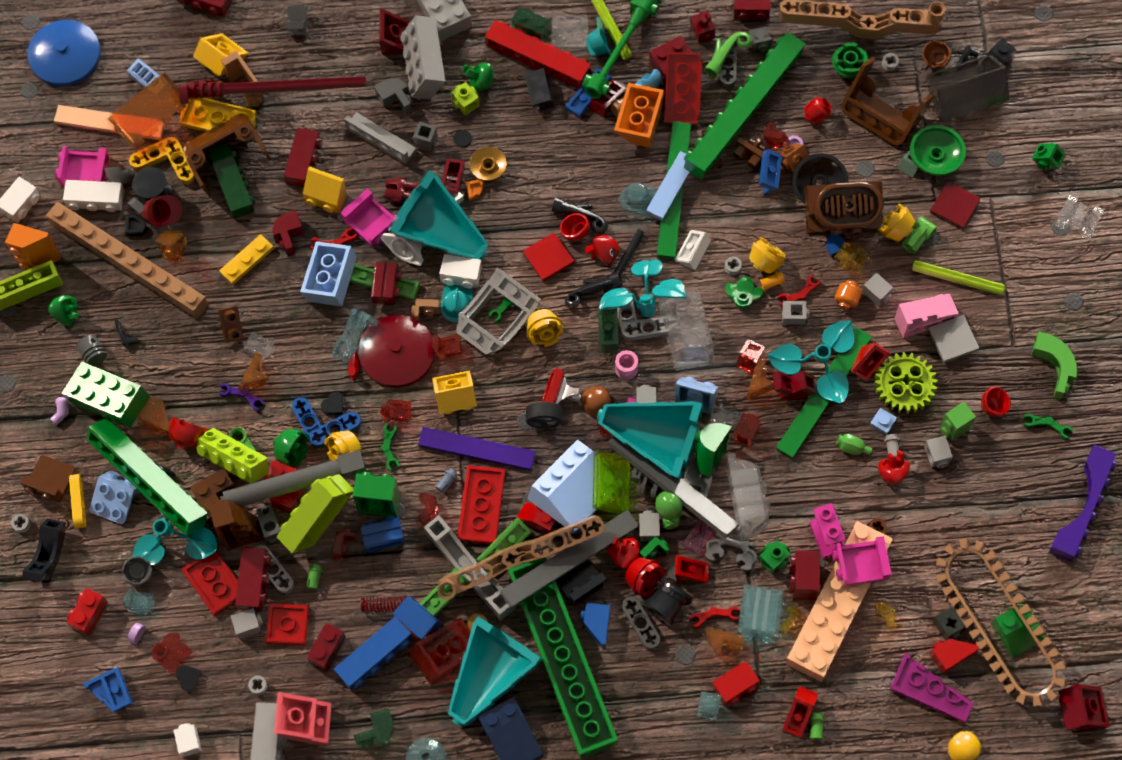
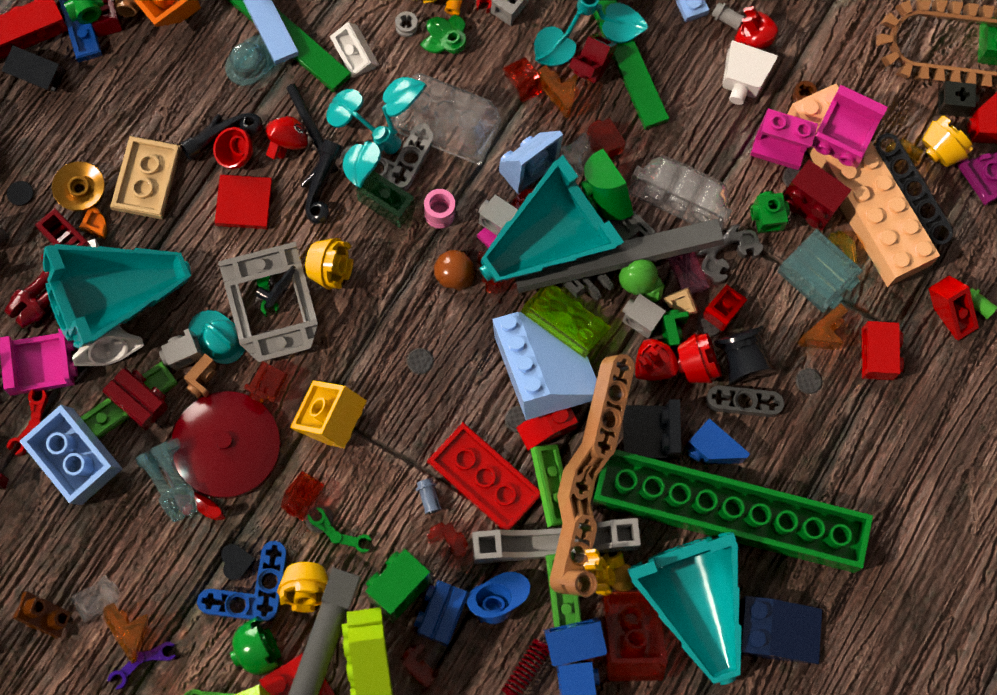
camera: 65 degrees left, 5 degrees up
(412, 558) = (497, 597): none -> blue piece
(432, 287) = (181, 350): none -> light grey brick
(460, 271) = (186, 306): white brick -> none
(466, 604) = (603, 569): none -> yellow piece
(476, 448) = (413, 437): dark purple tile -> none
(507, 312) = (278, 289): none -> black bar
(522, 195) = (145, 177): none -> tan tile
(544, 415) = (434, 334): black tyre -> none
(558, 389) = (412, 301): red piece -> none
(567, 560) = (631, 440): dark grey tile -> none
(676, 543) = (682, 300): none -> tan tile
(708, 705) = (888, 394): clear light blue brick -> none
(712, 612) = (782, 318): red piece -> none
(852, 445) = (697, 52): bright green plant -> none
(861, 482) = (746, 71): none -> white torso
(861, 644) = (904, 181): none -> black beam
(908, 634) = (946, 143): none -> yellow cone

